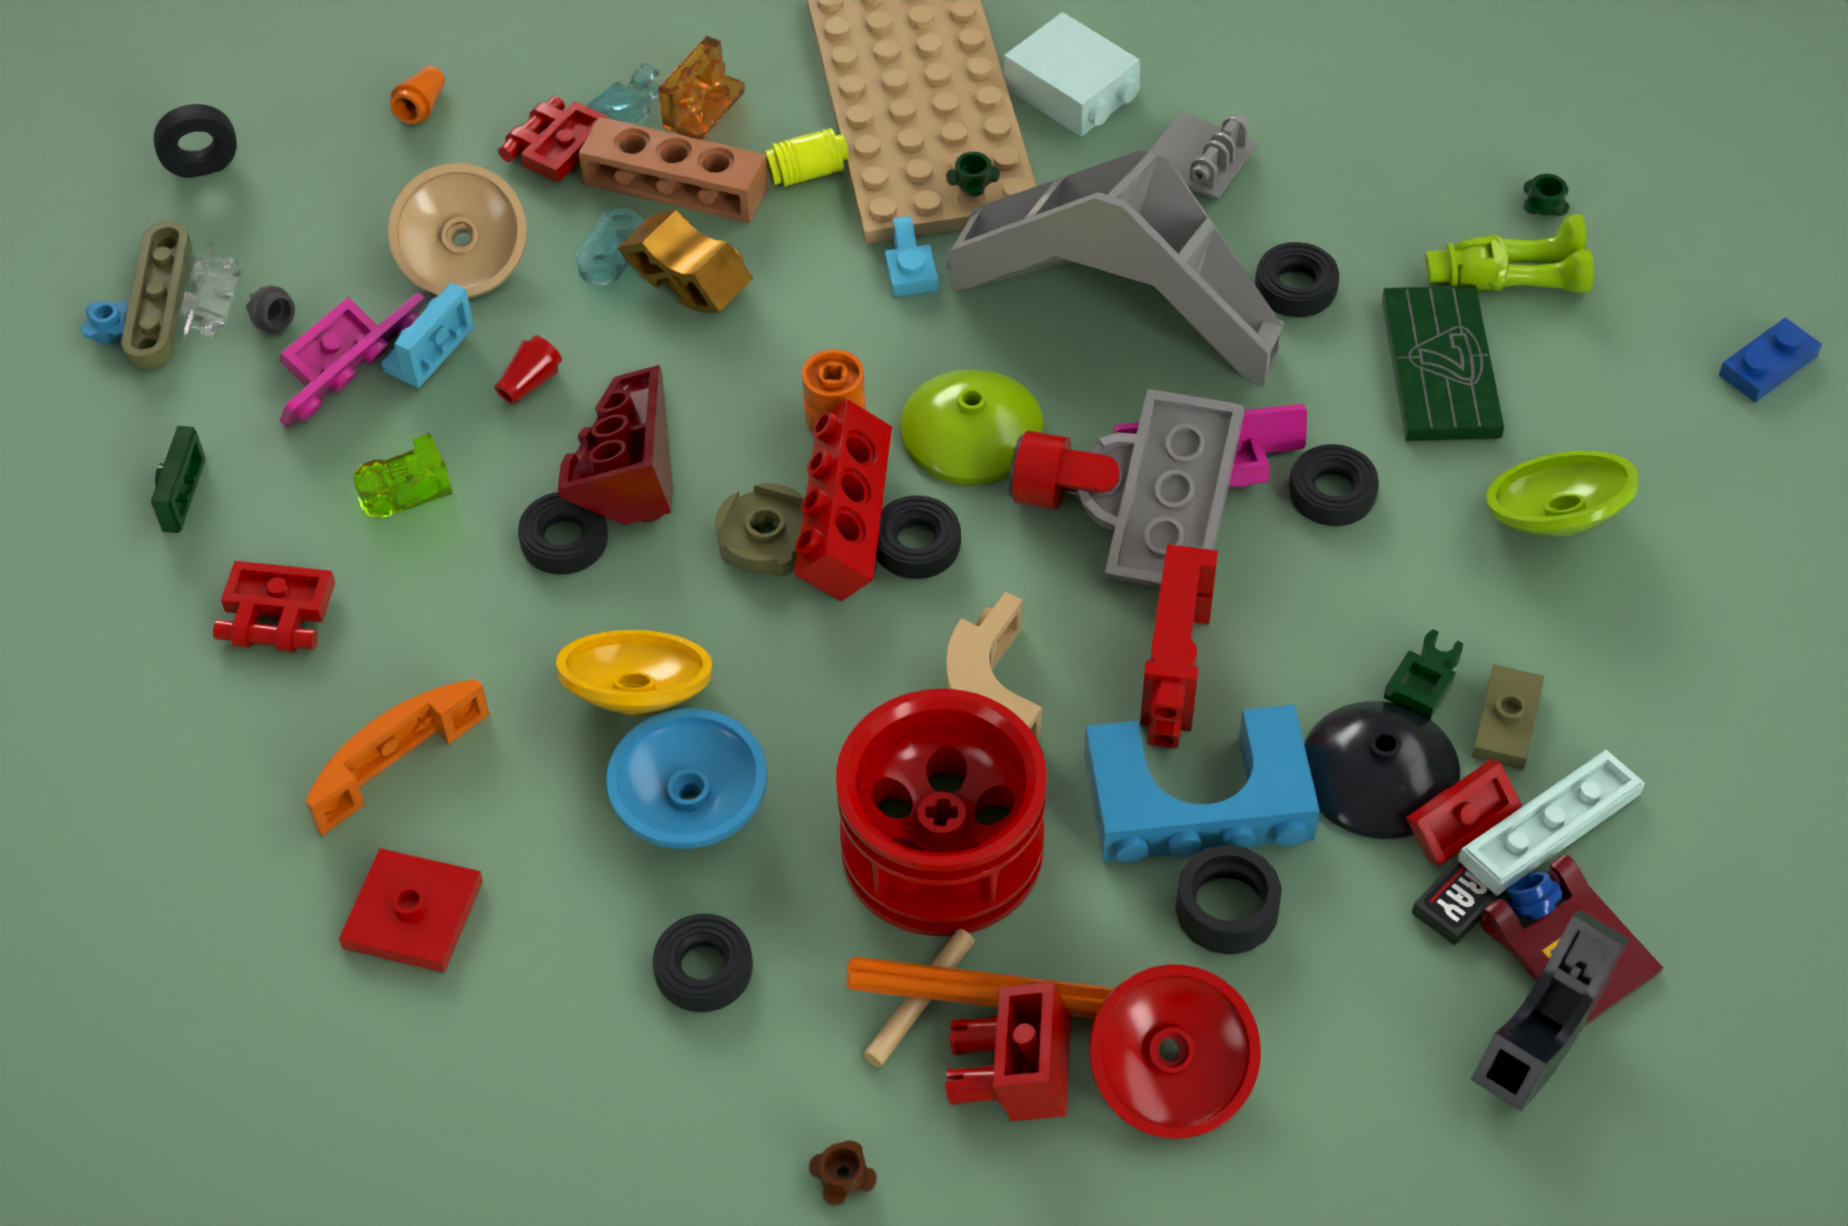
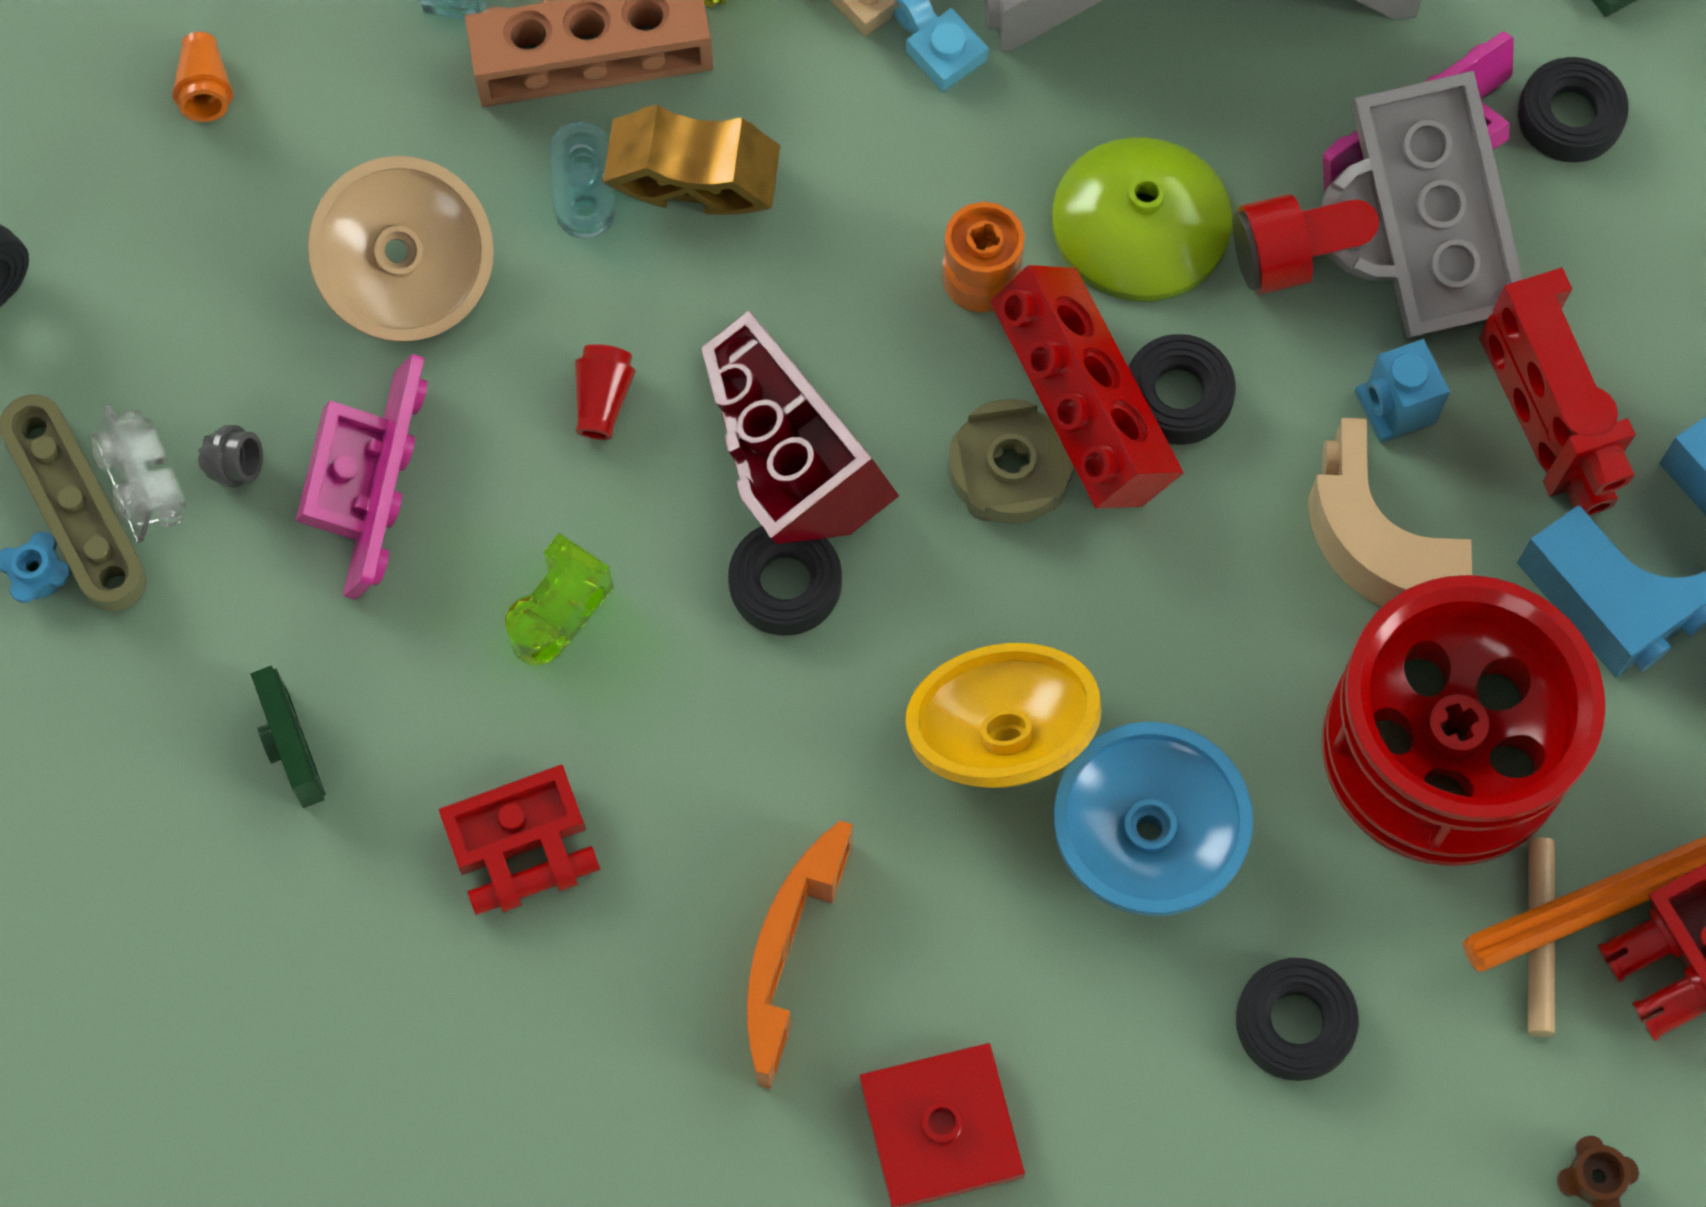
camera: 30 degrees left, 15 degrees up
(431, 337) = (456, 406): medium azure bracket -> none
(558, 146) = (428, 66): red plate -> none
(1069, 602) = (1403, 391): none -> dark azure brick

